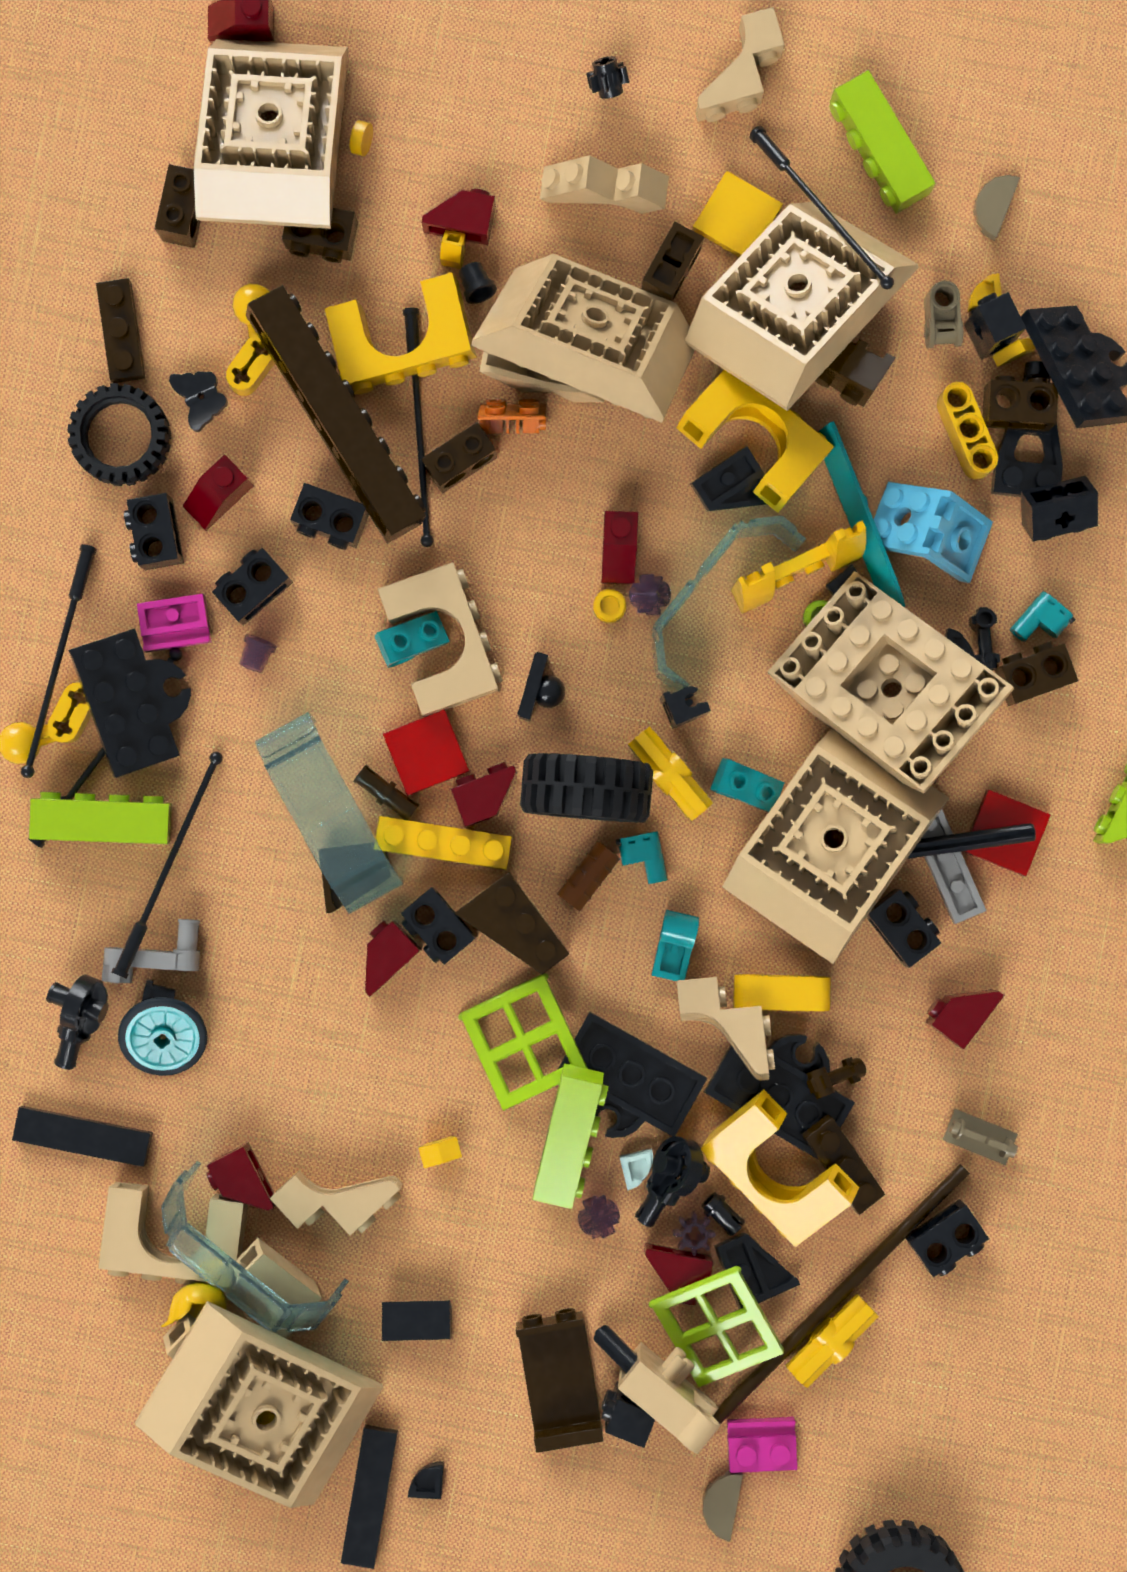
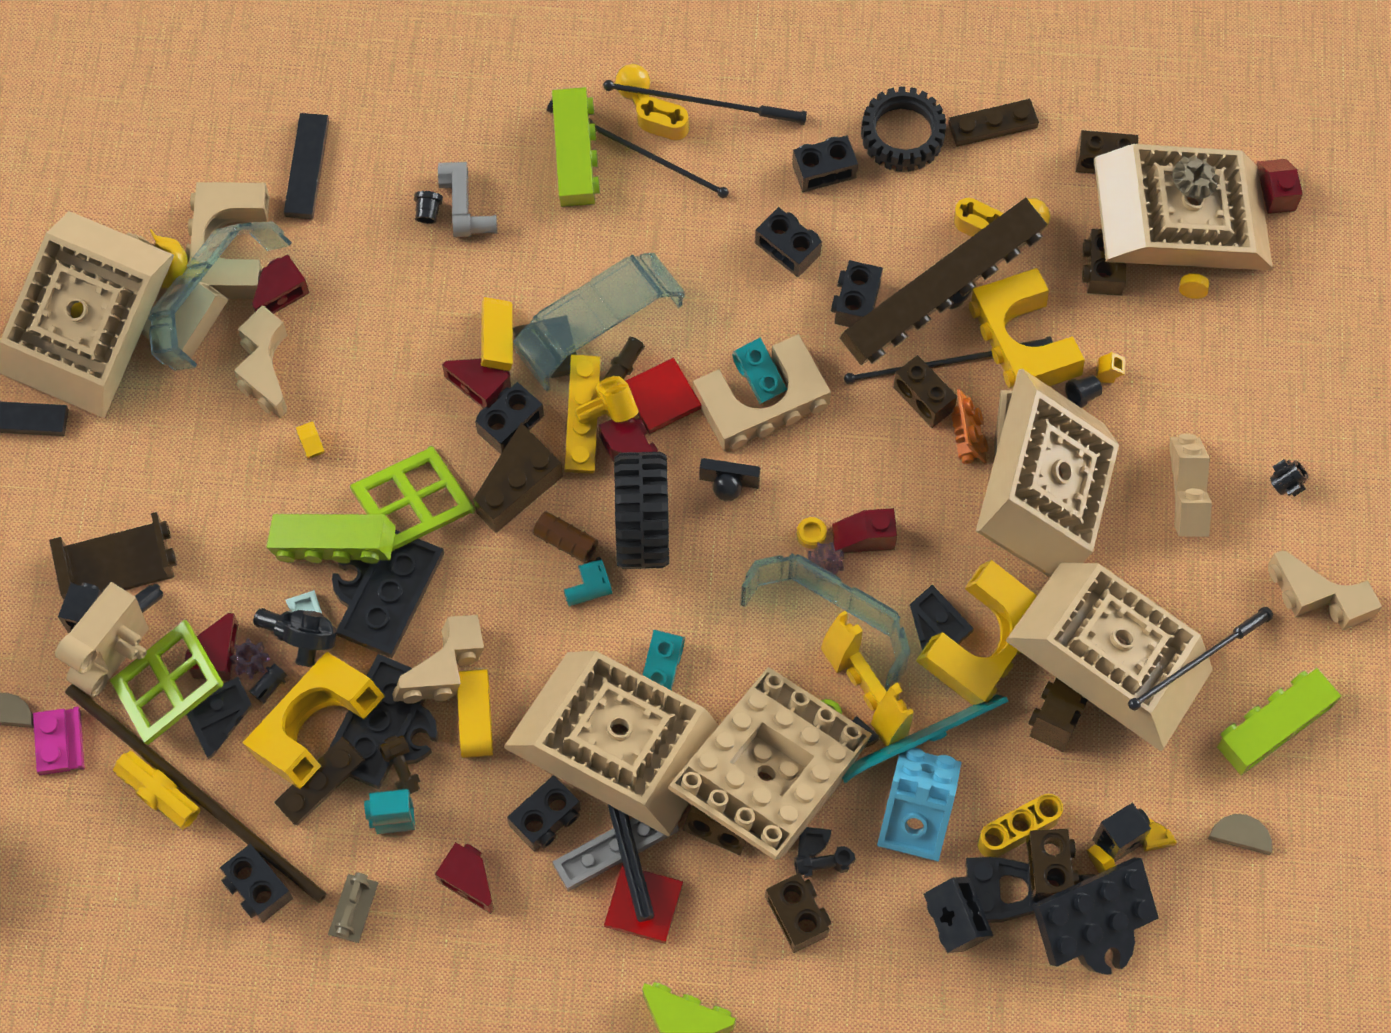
camera: 85 degrees right, 20 degrees down
(81, 1015) = (412, 155): black pin -> none
(129, 701) = (677, 157): black plate -> none
(140, 927) = (484, 182): black piece -> none
(162, 1015) = (395, 213): wheel -> none
(174, 623) = (749, 187): dark pink plate -> none
(192, 387) = (953, 179): black animal -> none
(216, 492) = (867, 208): dark red slope -> none
(245, 117) = (1183, 177): none -> dark tan gear
(256, 653) = (731, 251): clear purple piece -> none
(335, 931) = (496, 334): none -> yellow tile
(416, 1320) = (161, 437): black hinge -> none
(427, 1482) = (19, 464): black tile -> none
(438, 806) = (614, 400): none -> yellow beam
(465, 213) = (1142, 376): dark red slope -> none
(598, 1217) = (260, 575): gear -> none
(671, 774) = (665, 596): yellow piece -> none
(673, 262) = (1128, 546): dark brown brick -> none
(675, 945) = (512, 617): teal plate -> none
(679, 709) = (722, 592): black hinge -> none
(736, 214) = (1190, 599): yellow tile -> none
(891, 1091) = (390, 811): none -> teal brick
(943, 323) = (1118, 792): dark tan piece -> none
(1046, 614) = (857, 918): teal piece -> none

